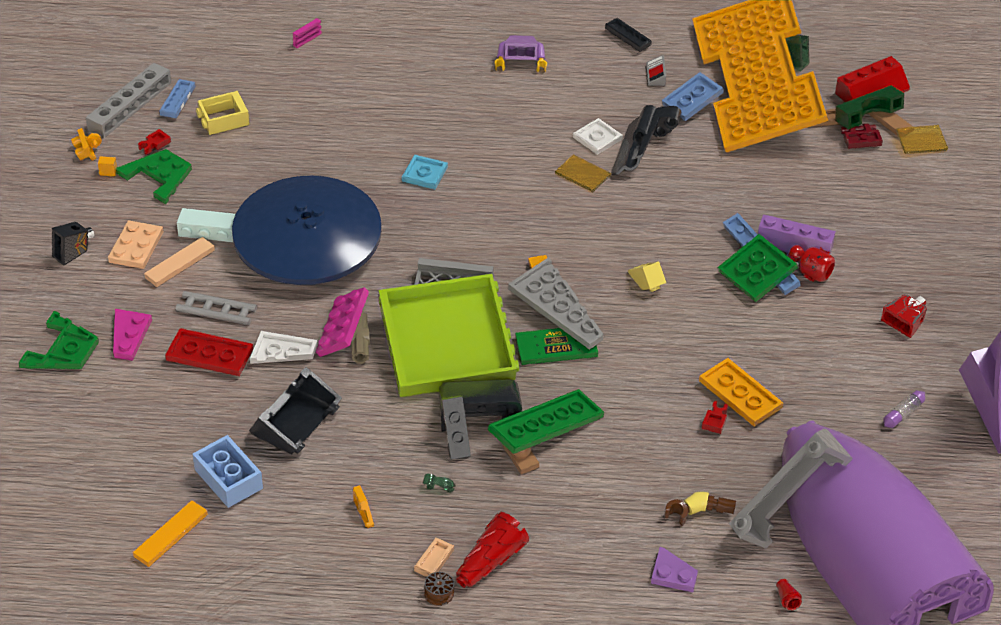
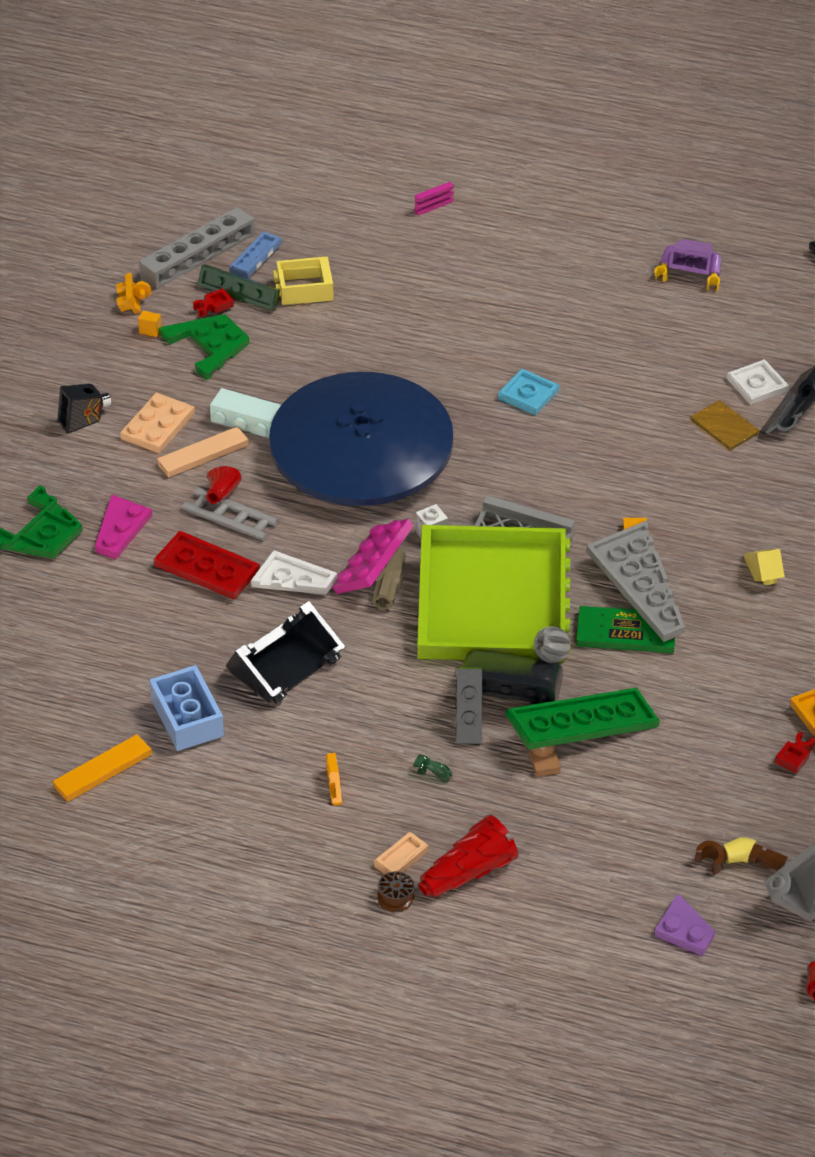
camera: 15 degrees right, 0 degrees up
(172, 126) = (239, 287): none -> dark green tile
(204, 283) = (222, 483): none -> red piece
(378, 283) = (430, 516): none -> white brick
(507, 367) = (551, 644): none -> light grey piece

